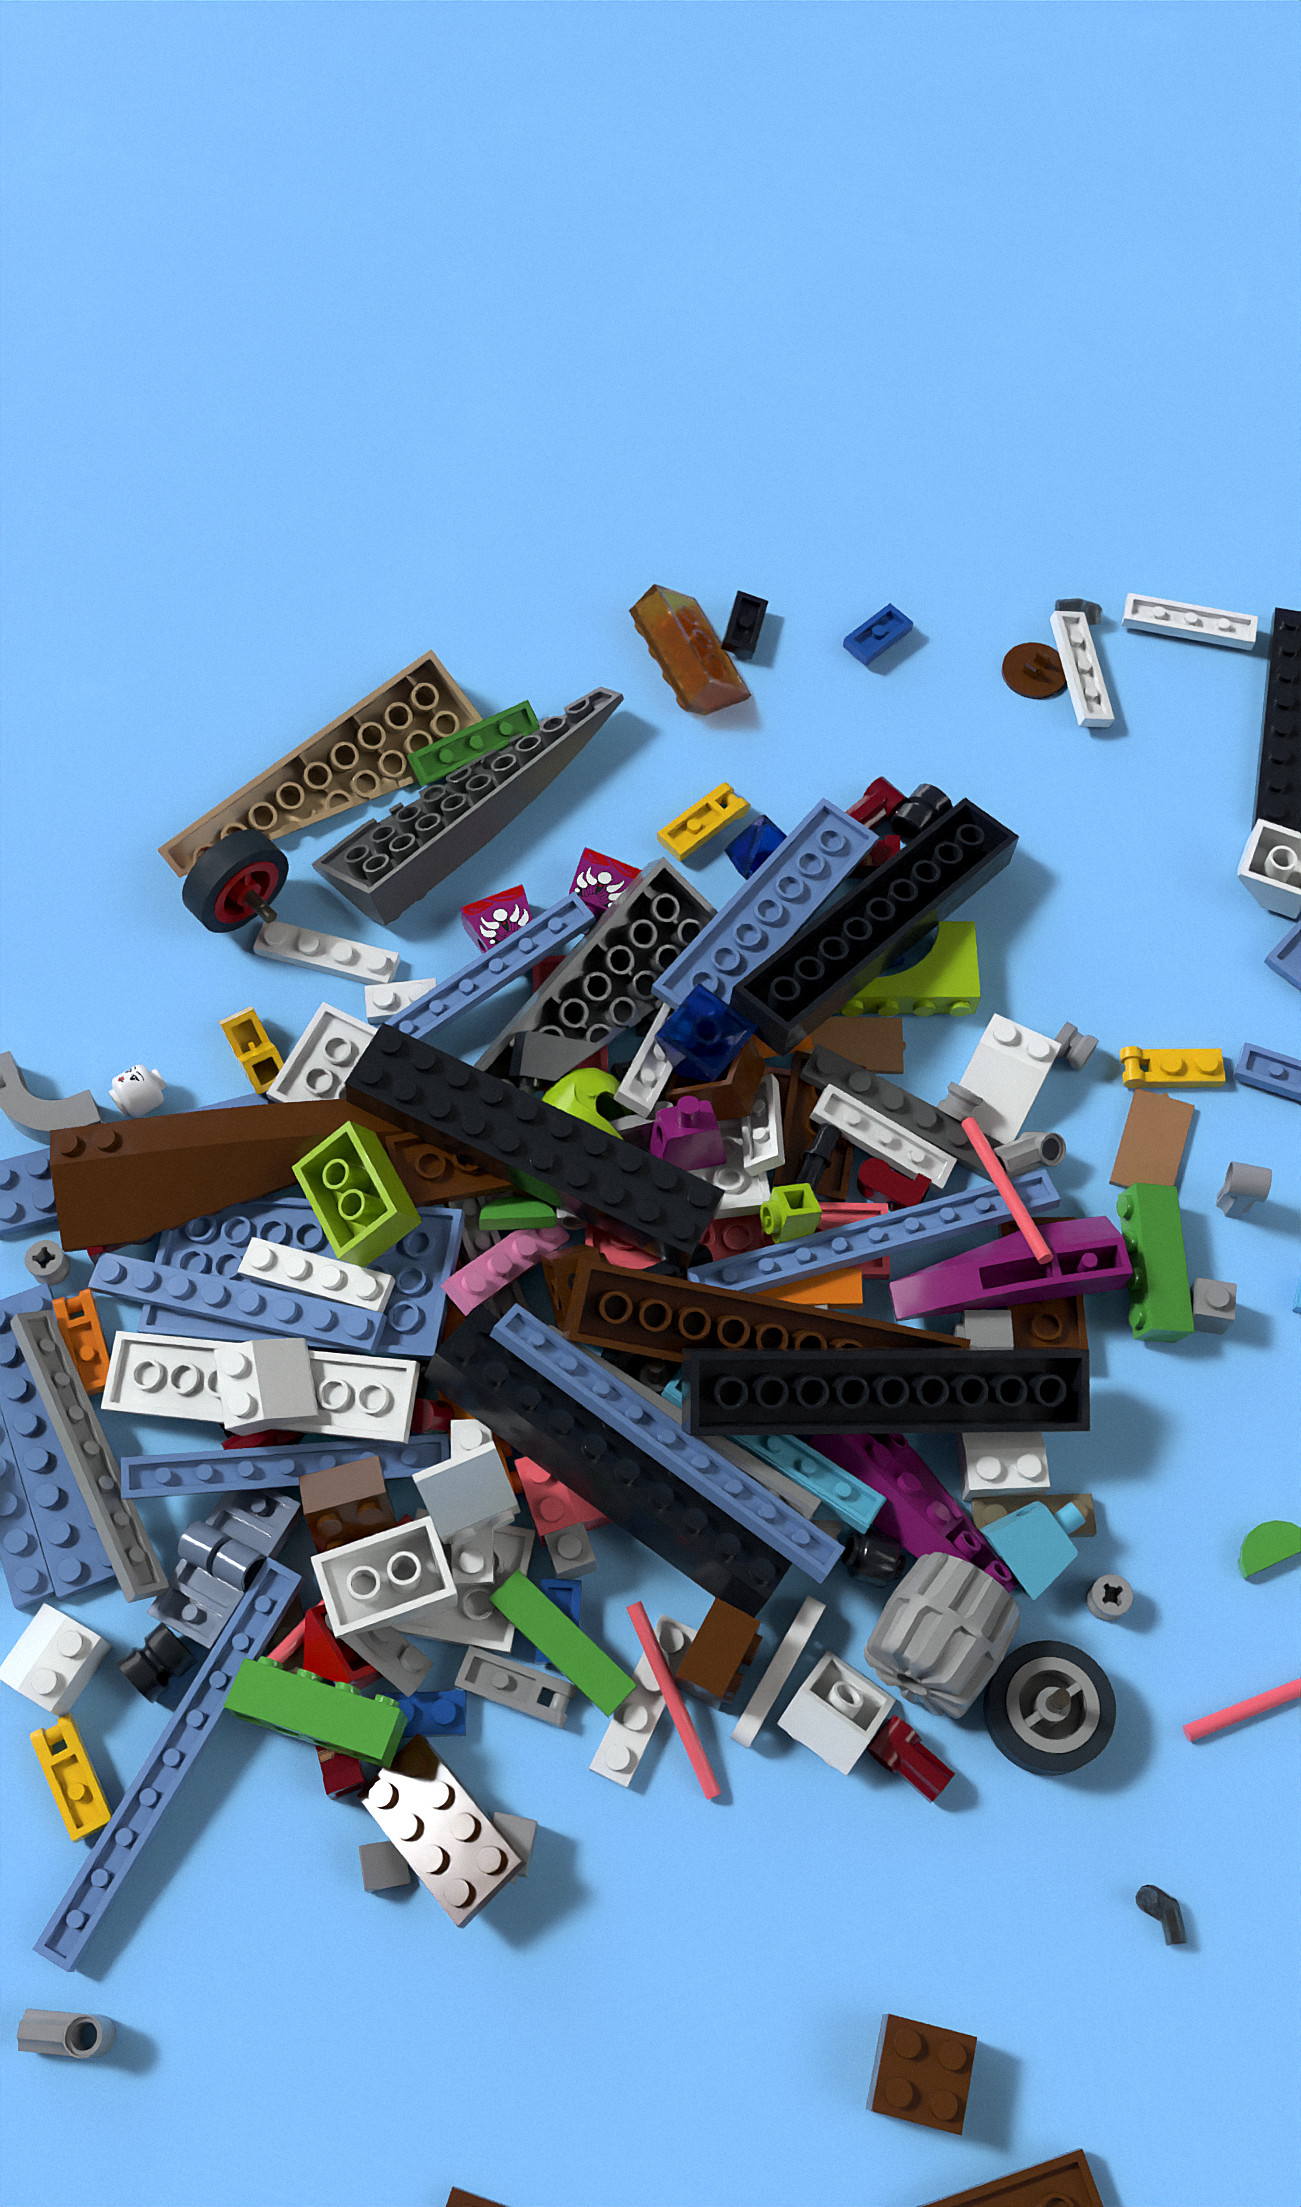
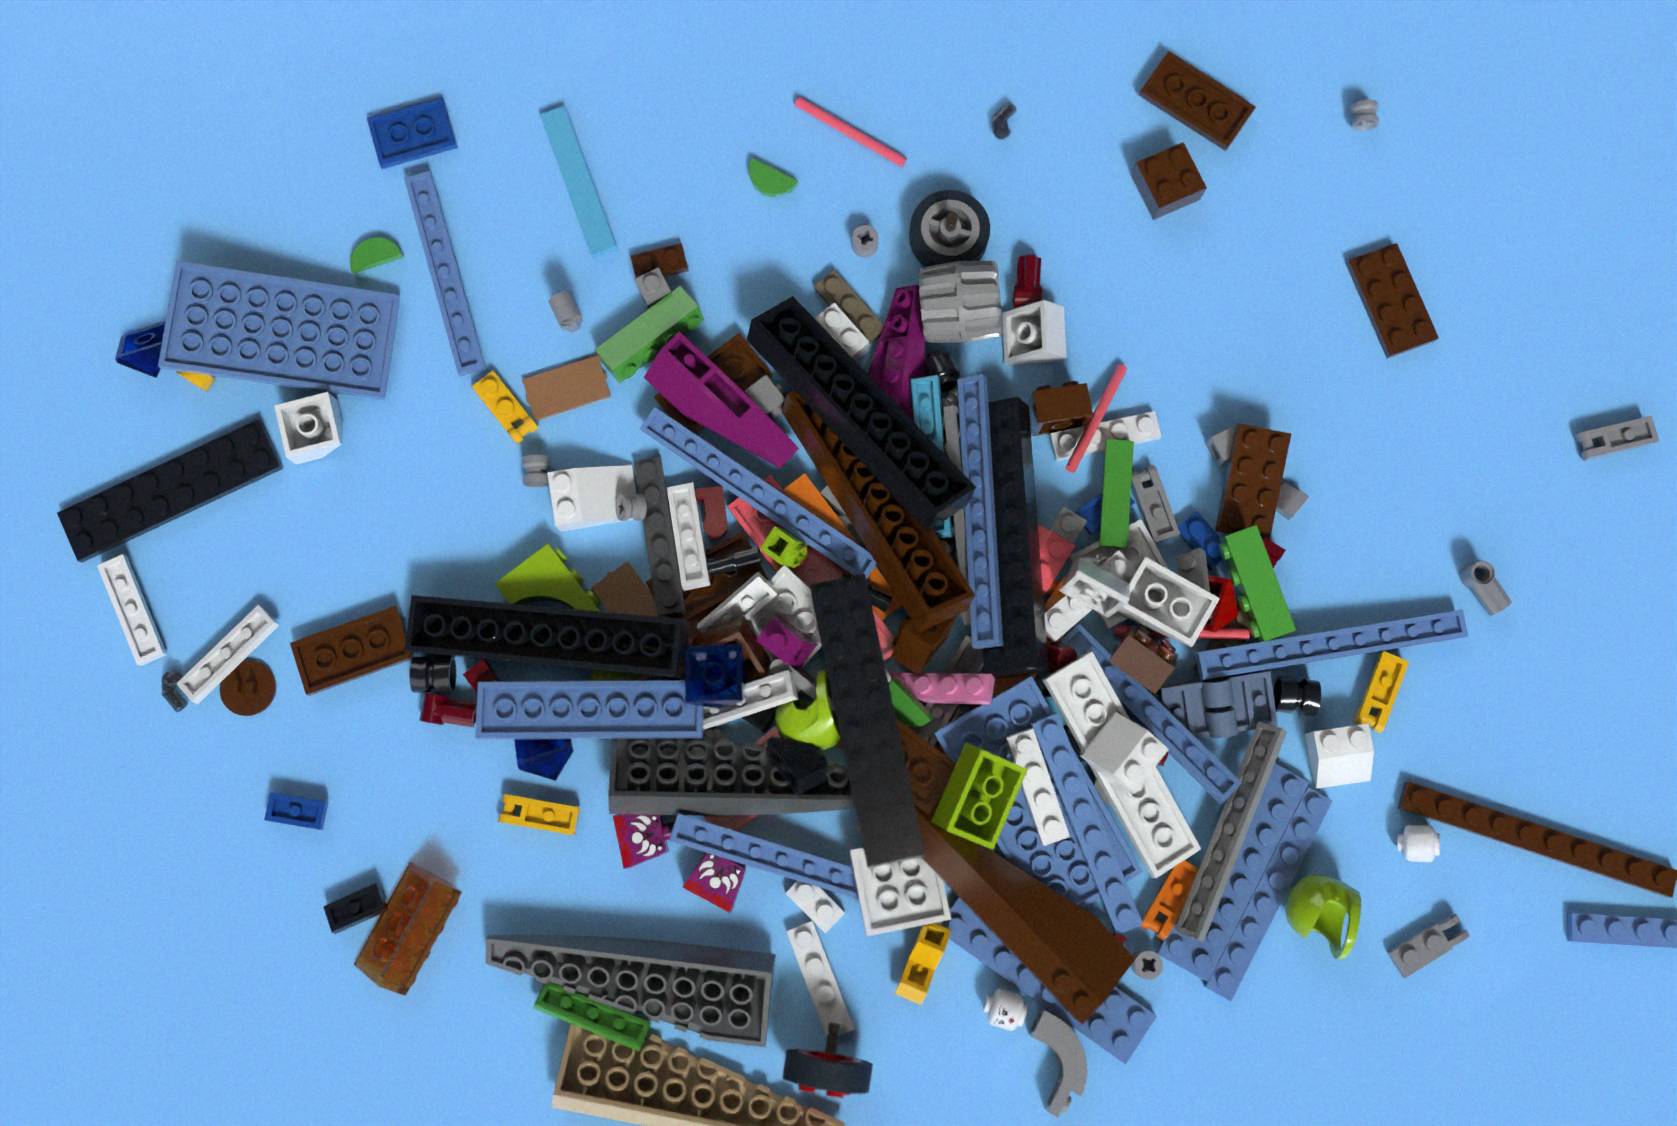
camera: 130 degrees left, 15 degrees up
(778, 1672) = (1037, 377): white beam -> none
(1006, 764) = (351, 650): none -> reddish brown plate
(1007, 1191) = (675, 437): coral axle -> none
(1031, 1152) = (628, 446): light grey piece -> none
(1035, 1543) = (870, 292): medium azure torso -> none
(1242, 1343) = (669, 259): none -> reddish brown plate

